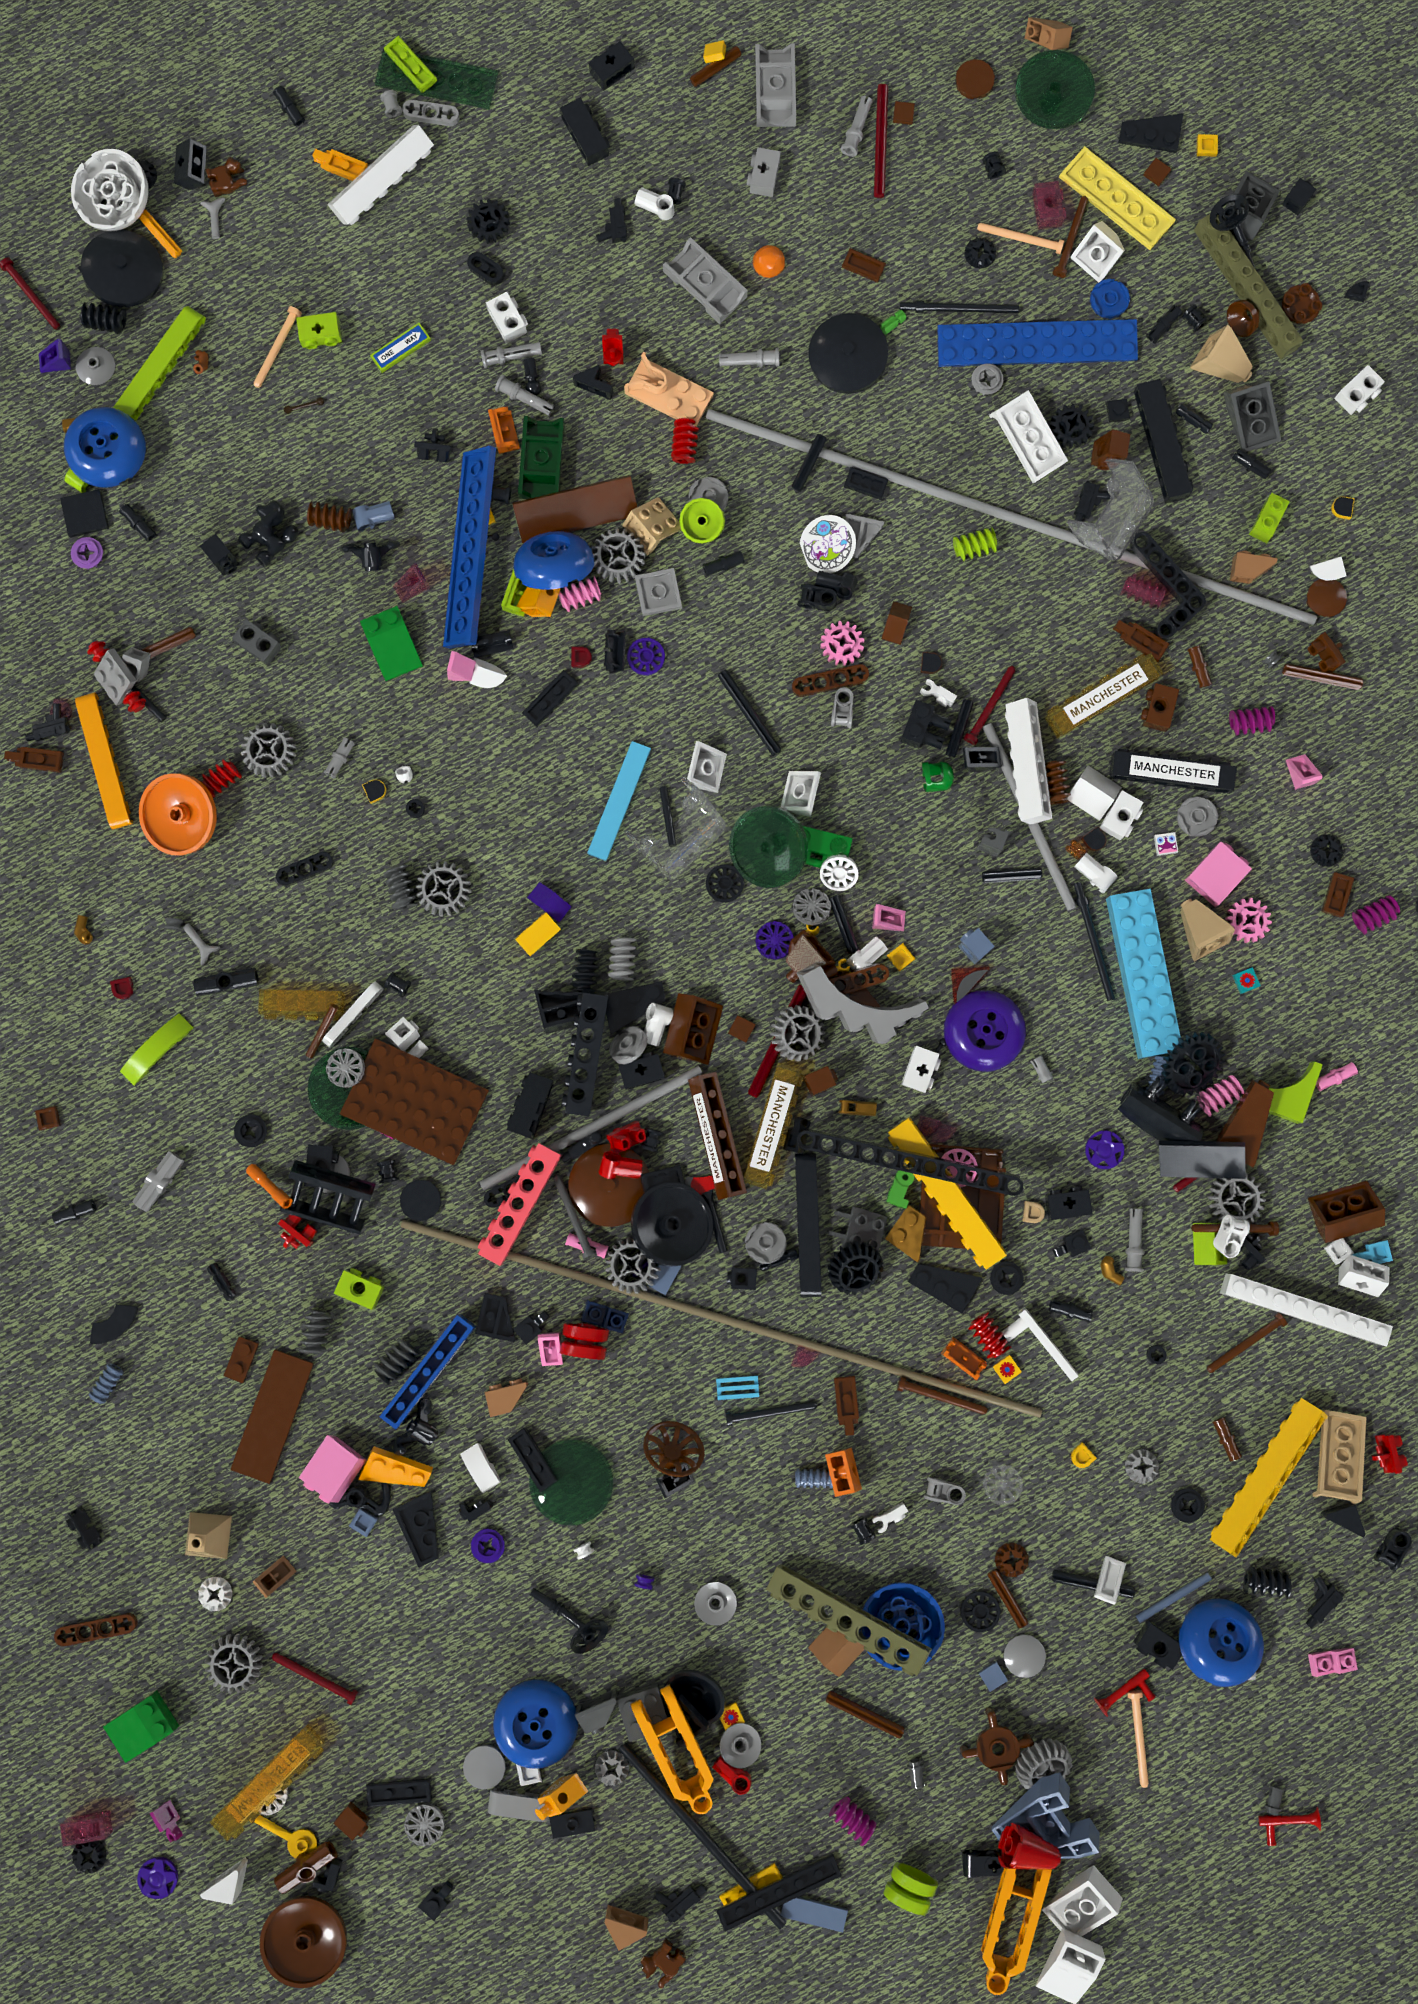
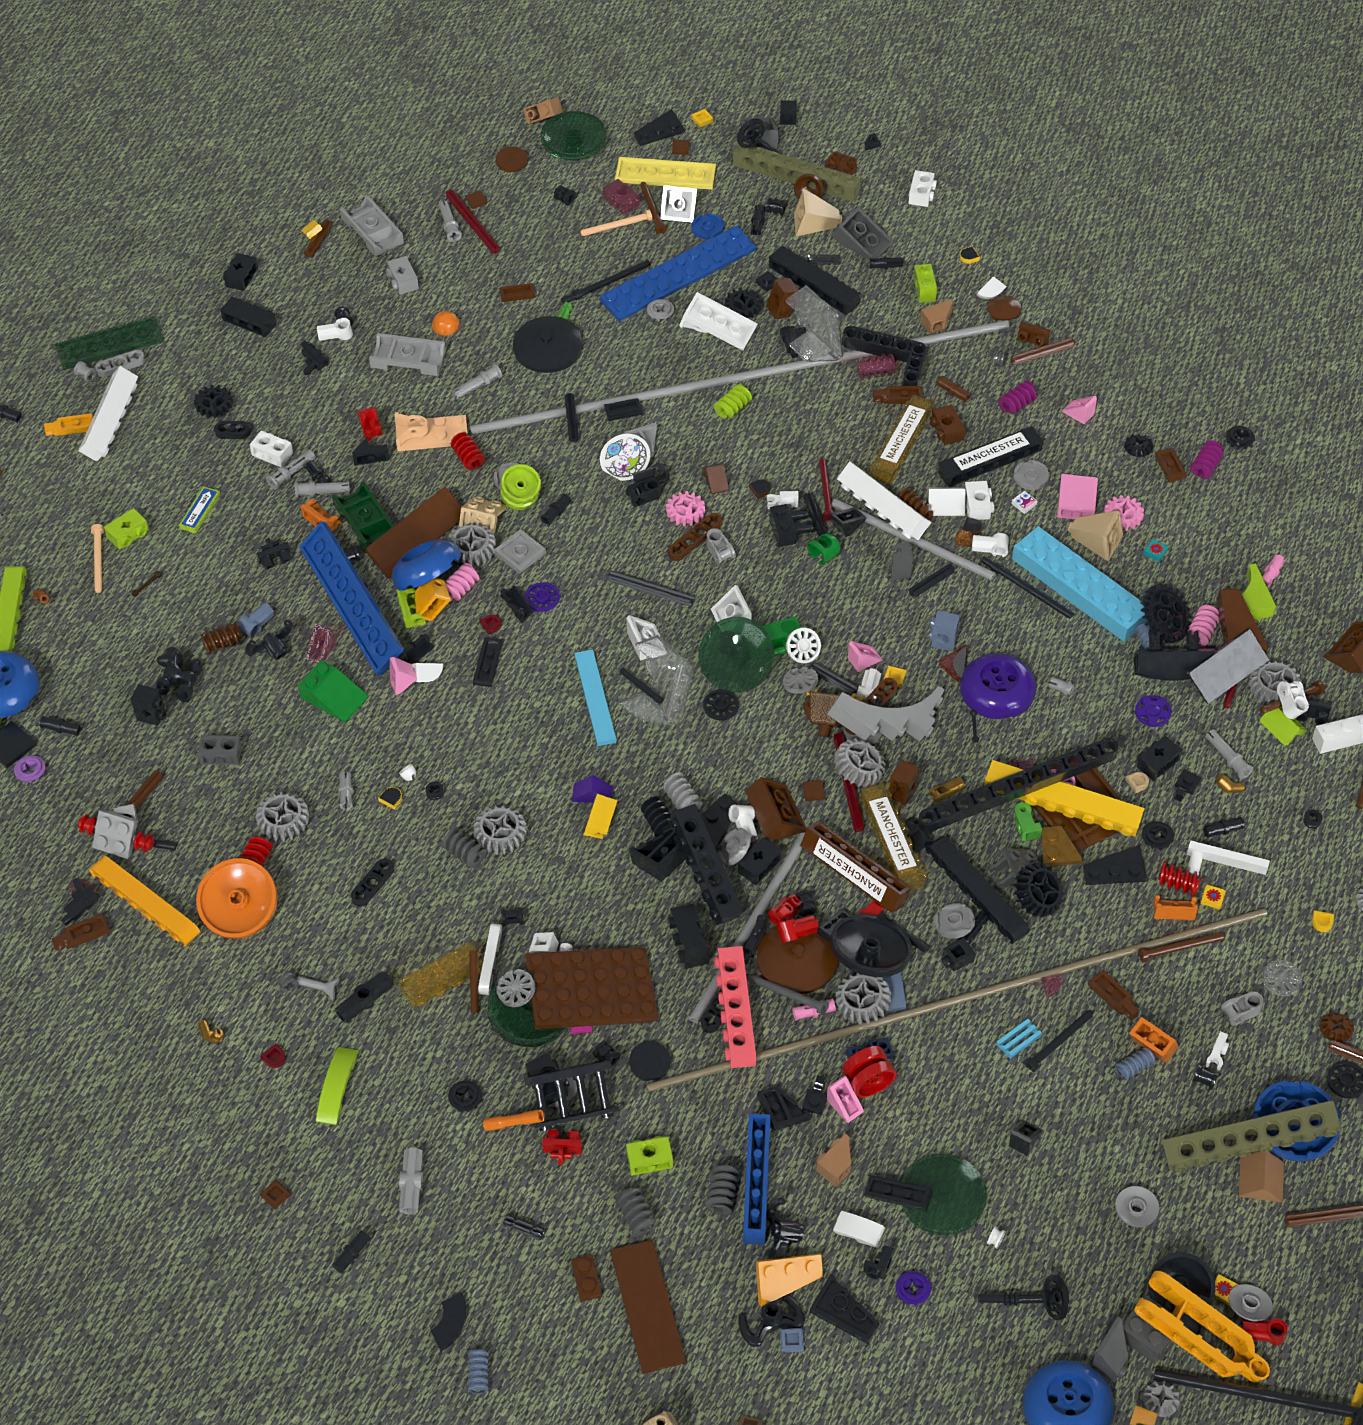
camera: 35 degrees left, 30 degrees down
(332, 1469) = (733, 1307): bright pink brick -> none
(410, 64) = (84, 342): lime tile -> none
(644, 1581) = (1065, 1228): dark purple bush -> none
(671, 1452) = (1006, 1116): reddish brown wheel -> none
(773, 940) = (789, 719): dark purple wheel -> none
(912, 1078) = (972, 735): white brick -> none
(985, 259) = (589, 249): black gear -> none

